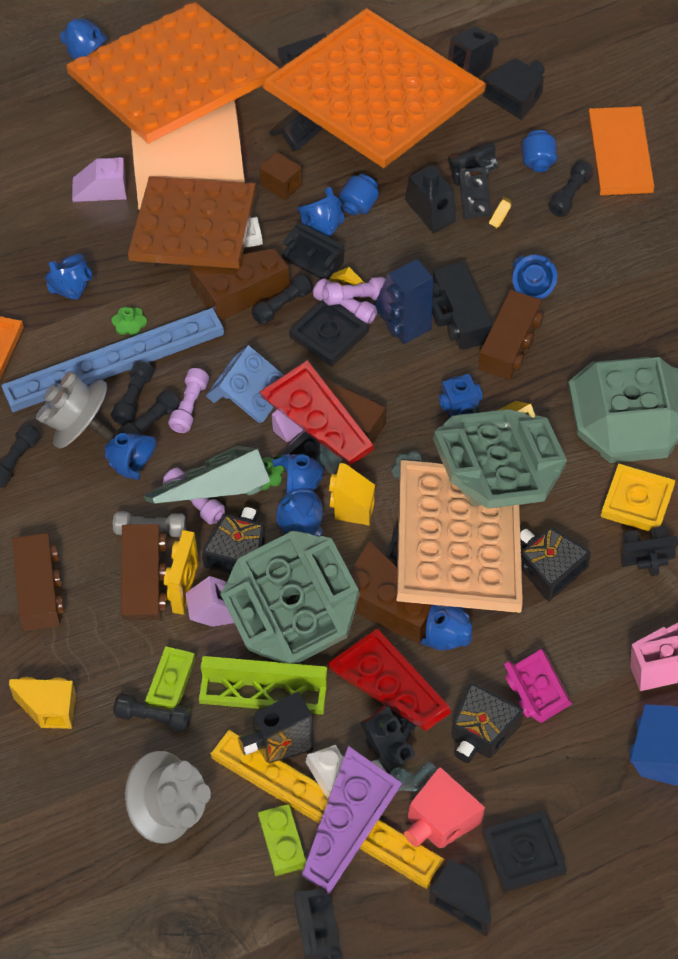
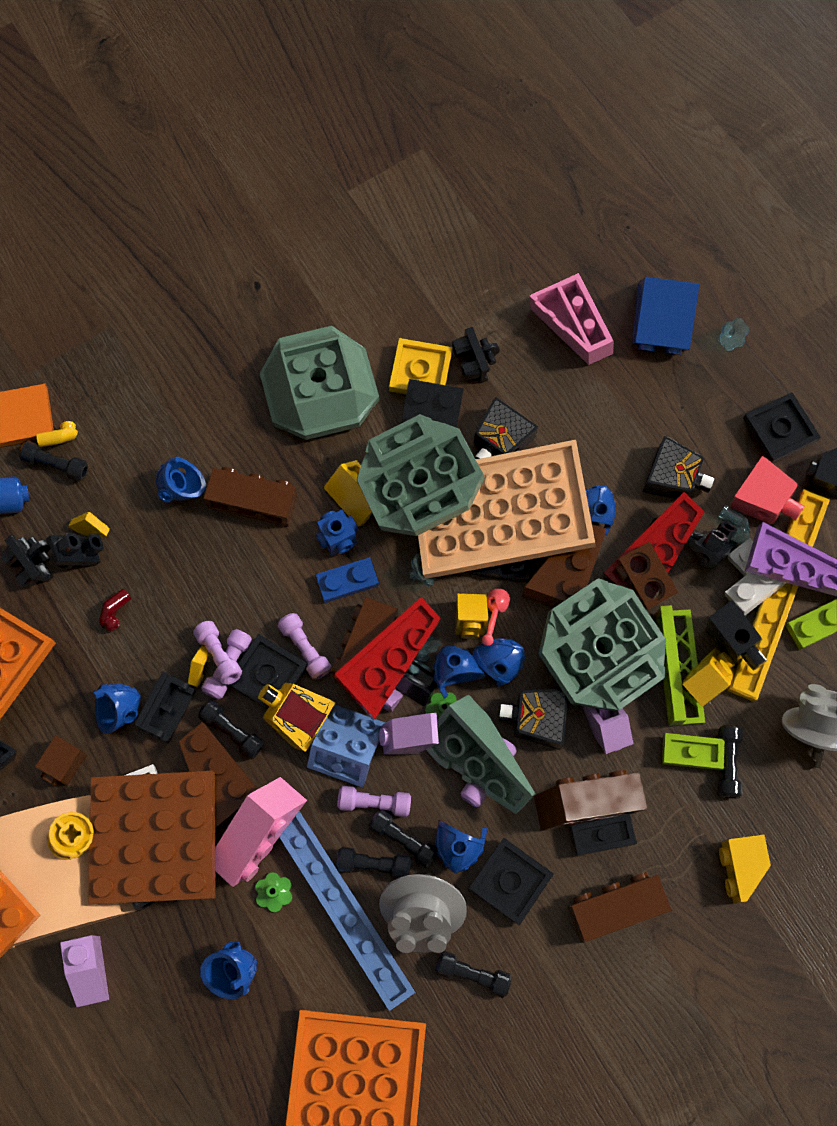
camera: 105 degrees left, 15 degrees up
(86, 498) = (511, 881): none -> black plate
(107, 582) = (603, 834): none -> black plate
(172, 525) = (532, 834): light grey piece -> none
(183, 297) = (255, 830): none -> bright pink wedge
(183, 571) = (601, 759): yellow plate -> none
(208, 164) = (70, 835): none -> yellow wheel
(238, 697) = (710, 676): none -> yellow slope
(241, 425) = (409, 734): none -> lavender slope
(284, 340) = (295, 713): none -> torso
(359, 195) = (82, 671): blue head -> none
(360, 657) = (653, 573): none -> reddish brown brick
(362, 527) = (500, 605): none -> coral hinge
(371, 354) = (317, 665): none -> lavender piece
(407, 301) = (234, 595): dark blue wedge -> none
(412, 408) = (347, 580): none -> blue plate
(416, 220) = (107, 616): none -> dark red arm
(431, 198) = (83, 594): black torso -> none
(466, 314) = (220, 545): black piece -> none
(538, 686) = (630, 432): dark pink bracket -> none
(585, 498) = (434, 401): none -> black plate
(594, 190) = (66, 433): none -> yellow arm
(651, 823) = (733, 334): none -> clear light blue plant

